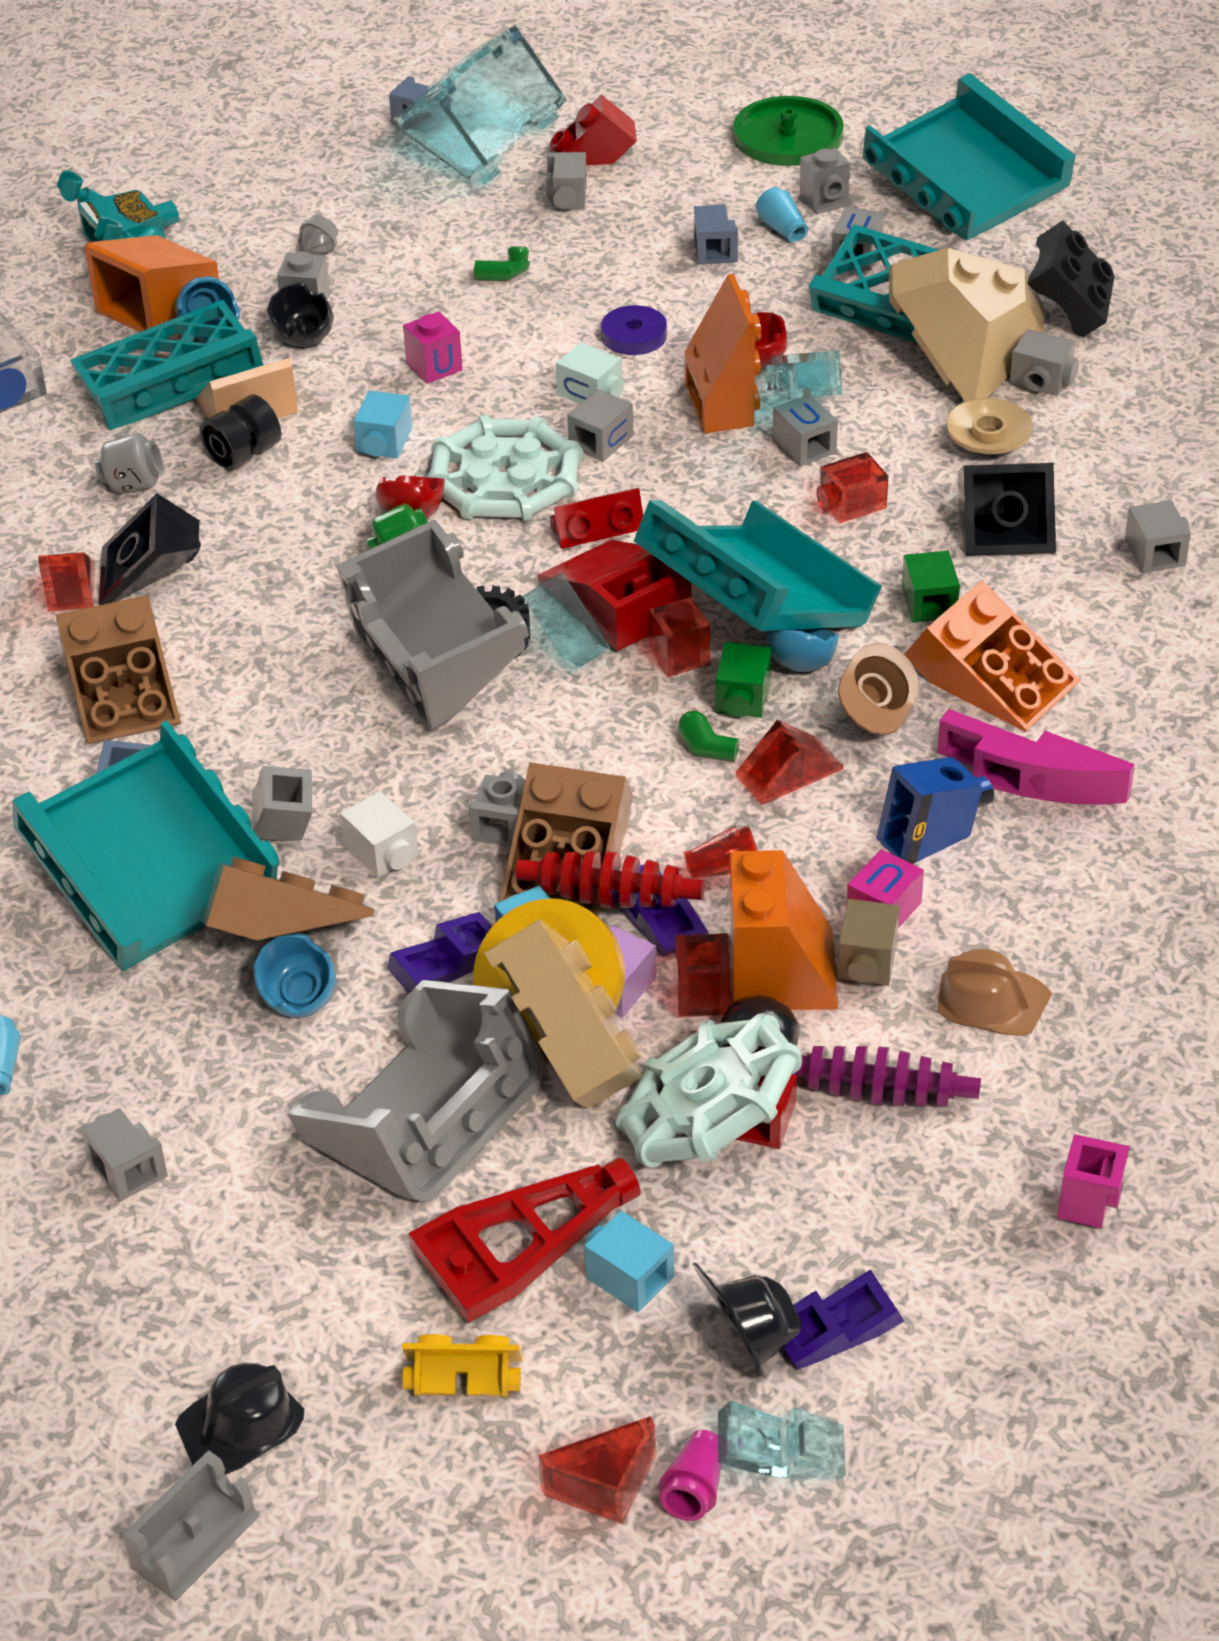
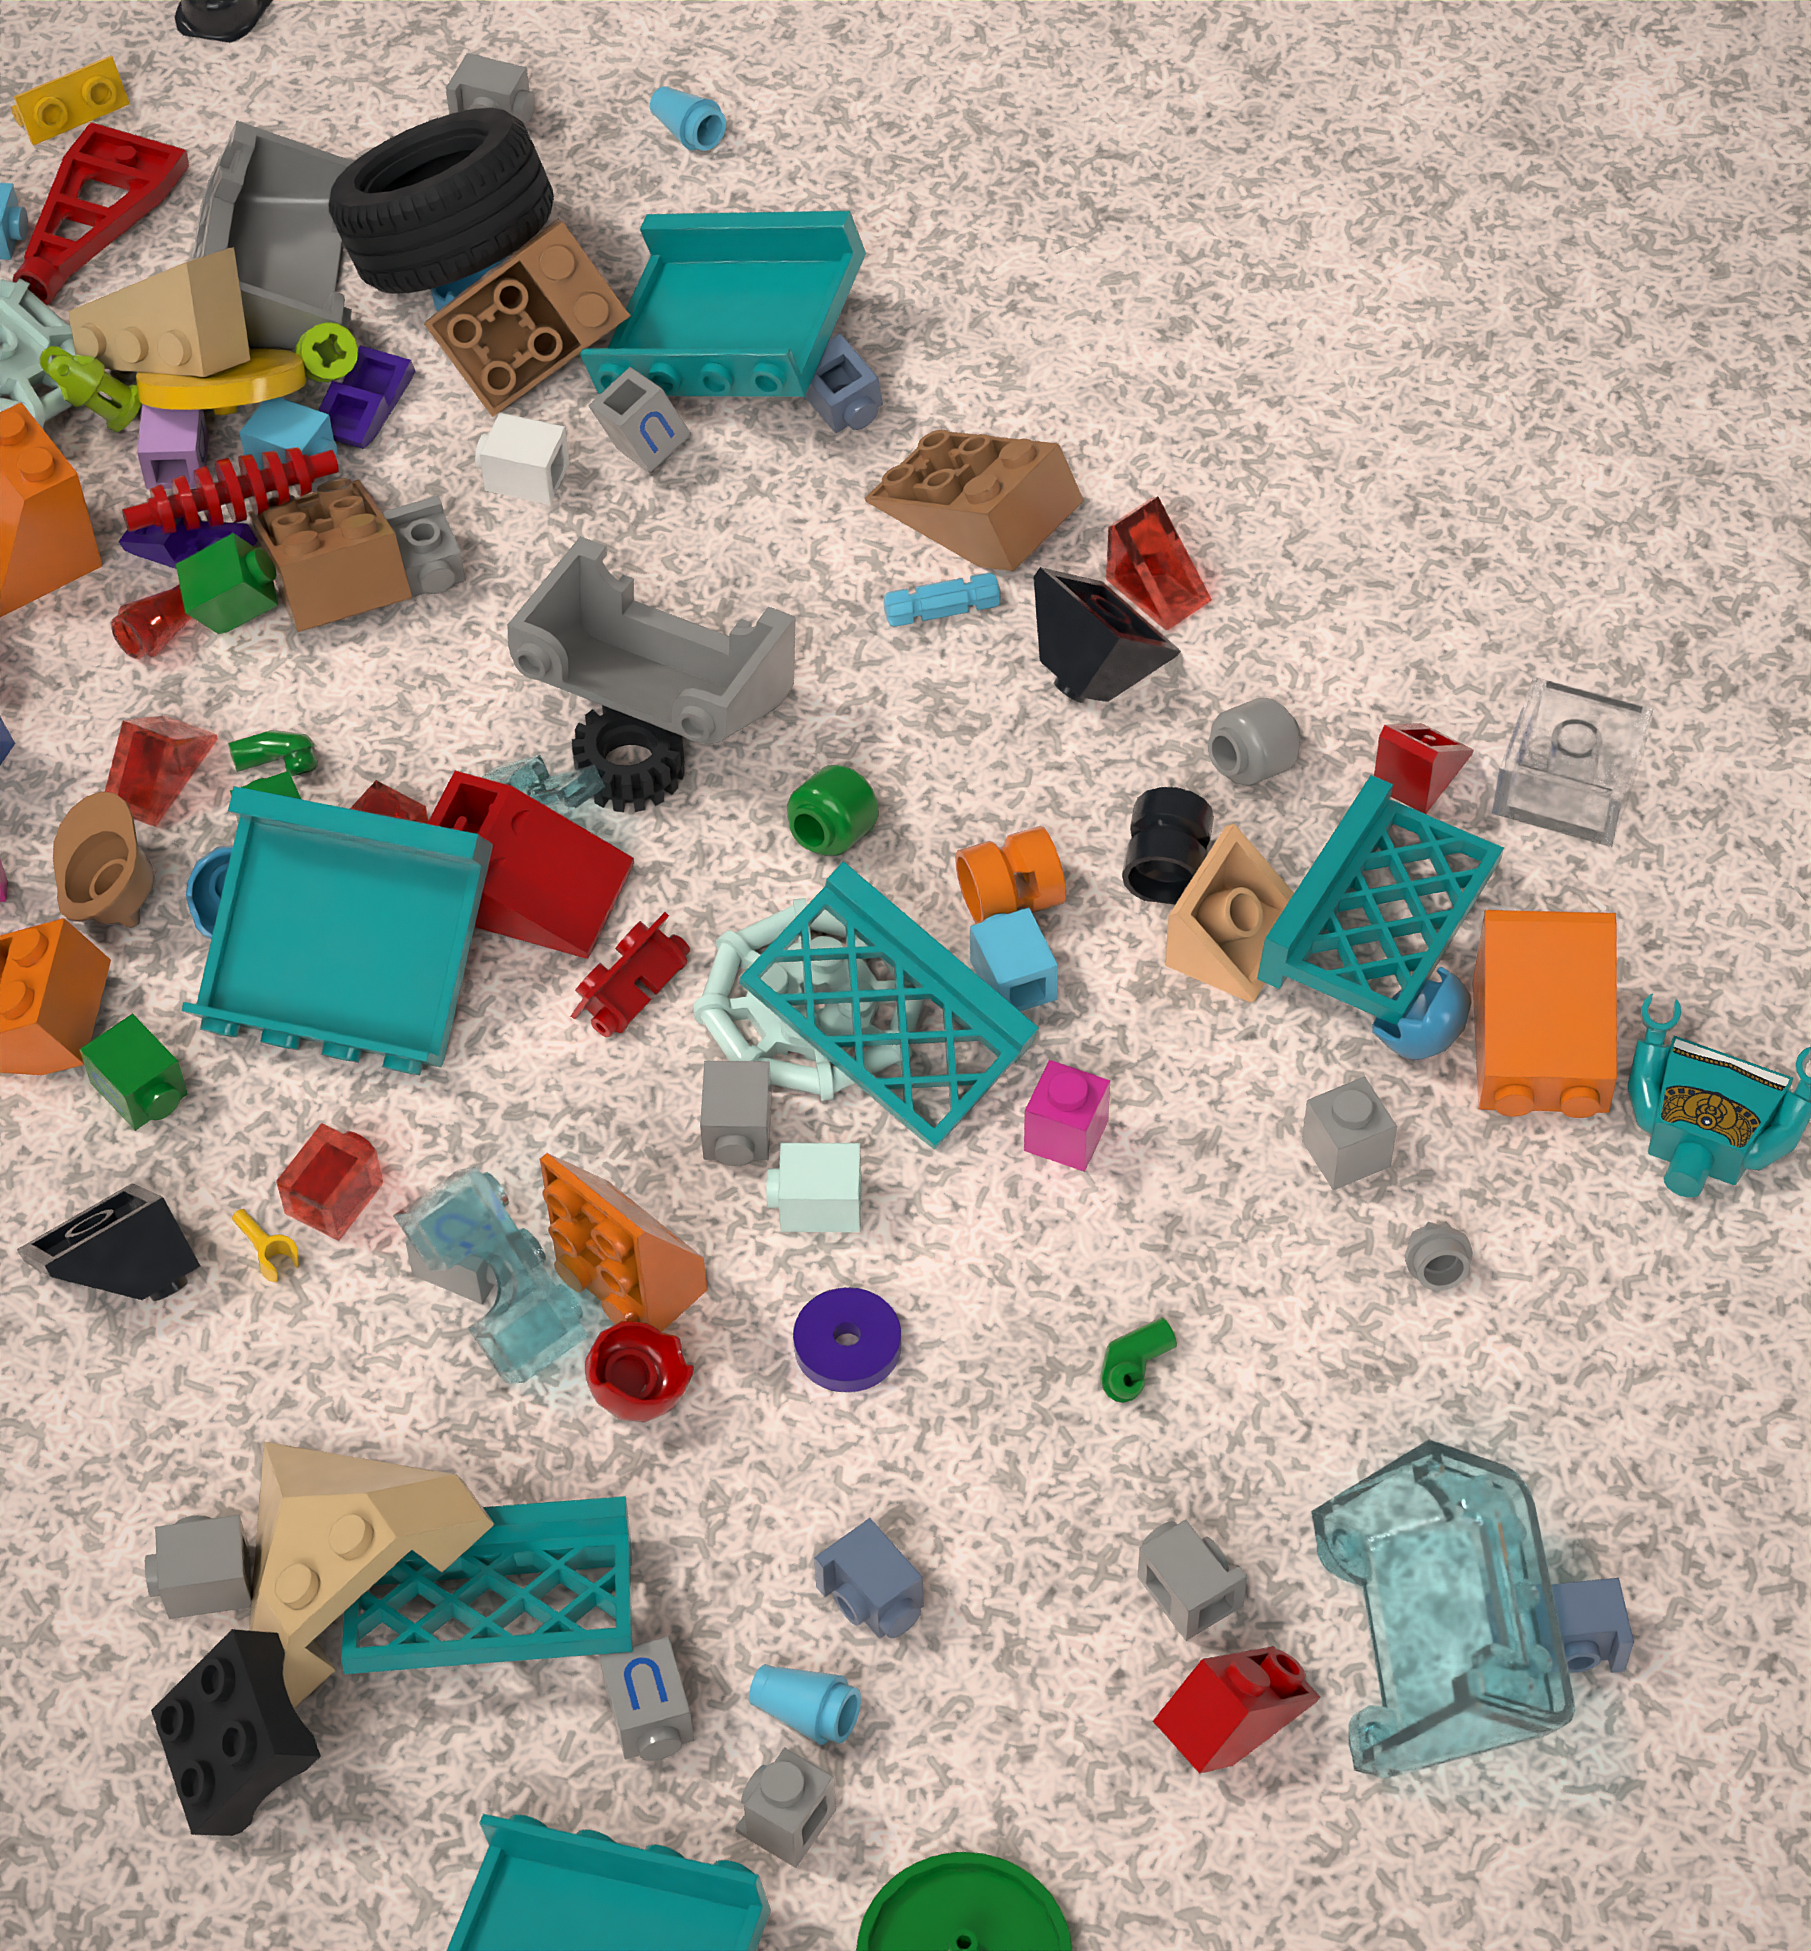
camera: 145 degrees right, 10 degrees up
(54, 417) = (1418, 763): none -> red slope
(206, 632) = (941, 599): none -> medium azure axle
(268, 919) = (441, 200): none -> black tyre
(300, 315) = (1305, 1063): black hair -> none
(346, 457) = (989, 881): none -> orange wheel
(411, 490) = (880, 854): red hair -> none
(452, 962) = (323, 353): none -> lime wheel
(472, 416) = (922, 962): none -> teal fence
(652, 1024) = (83, 379): none -> lime piece
(659, 827) = (227, 584): none -> green brick
(702, 974) = (88, 454): clear red brick -> none
(909, 485) = (265, 1244): none -> yellow hand
(989, 425) = (209, 1369): tan dish -> none

